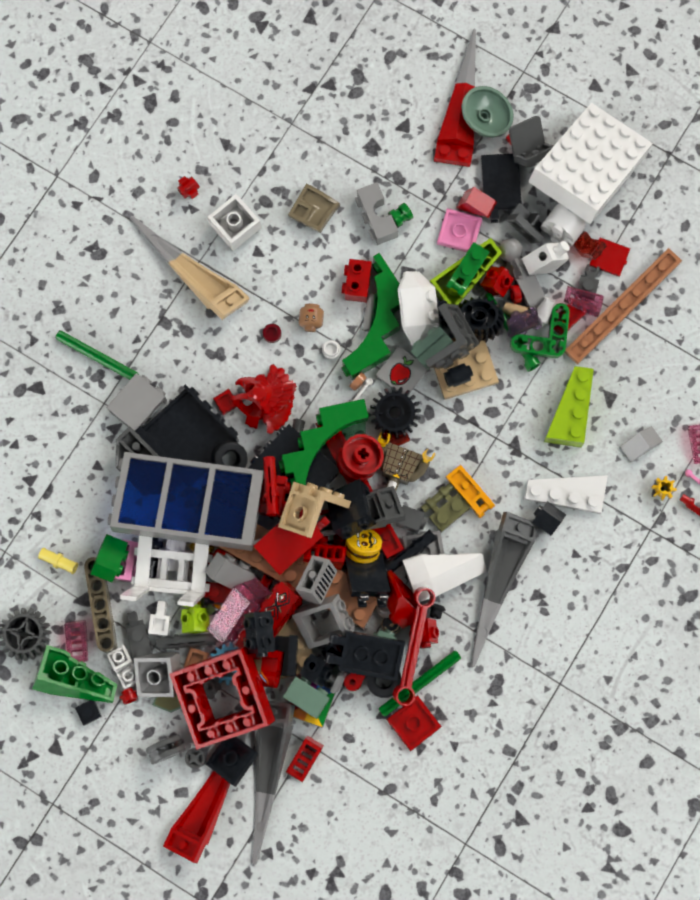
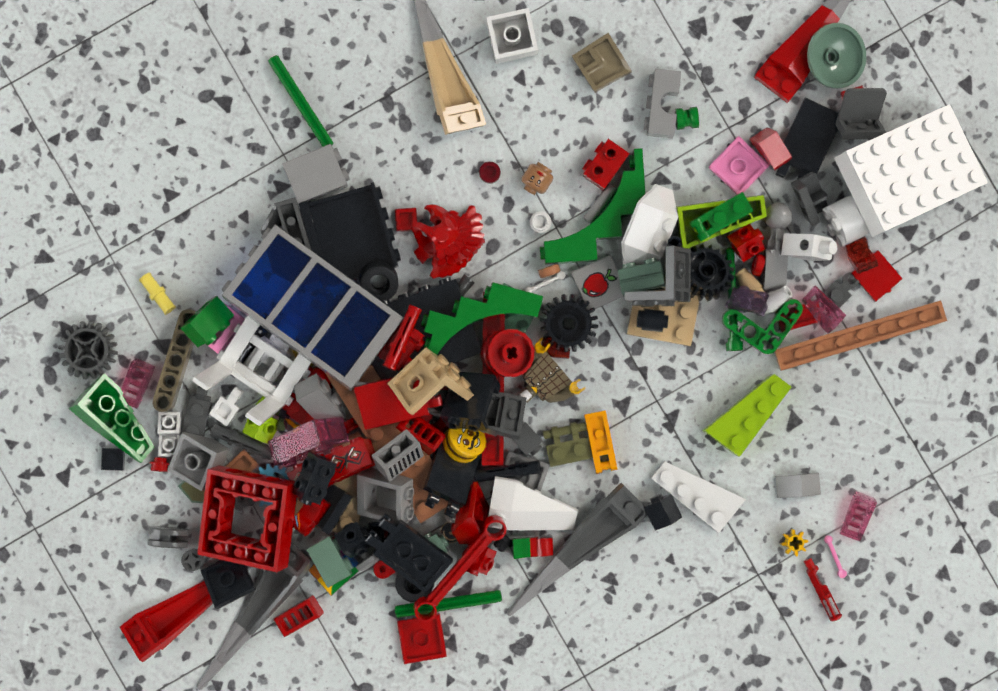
camera: 25 degrees right, 10 degrees up
(462, 601) = (532, 547): none -> leg

